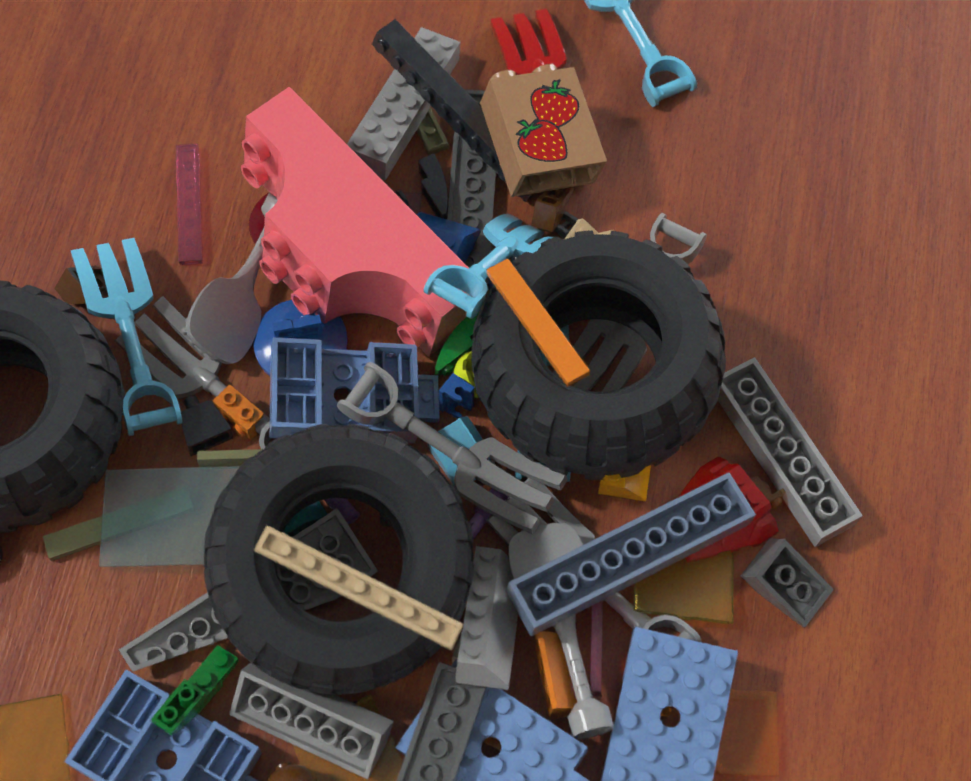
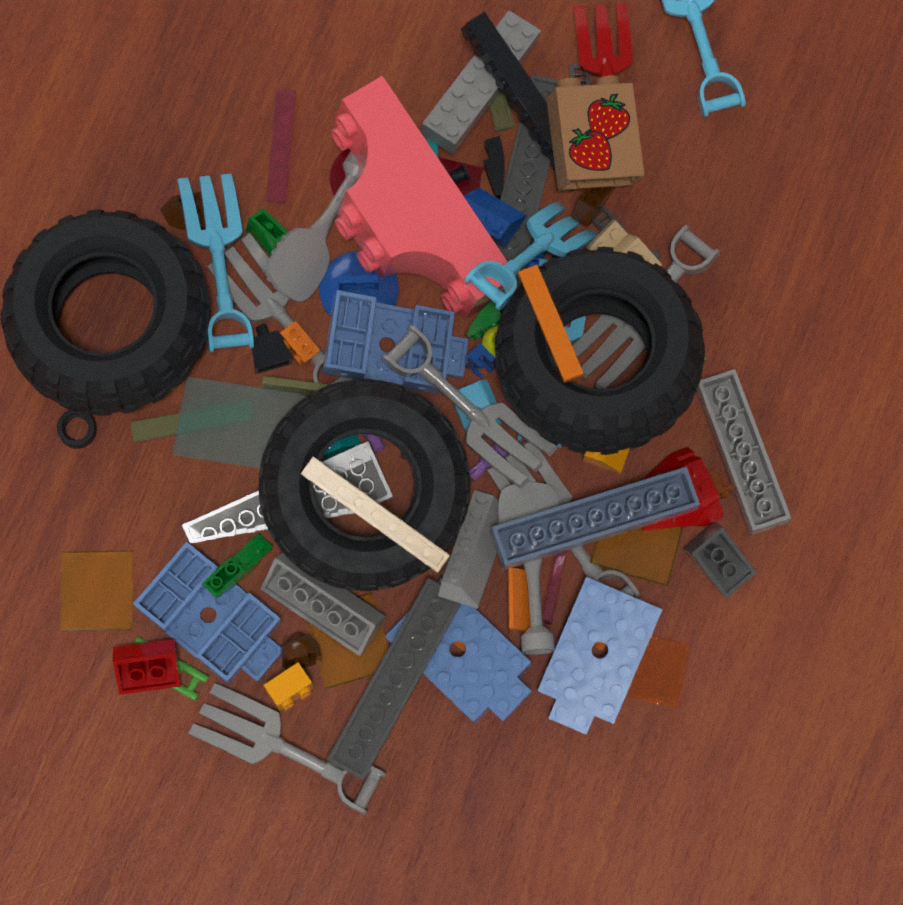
camera: 10 degrees right, 10 degrees up
(179, 290) = (265, 230): none -> green brick

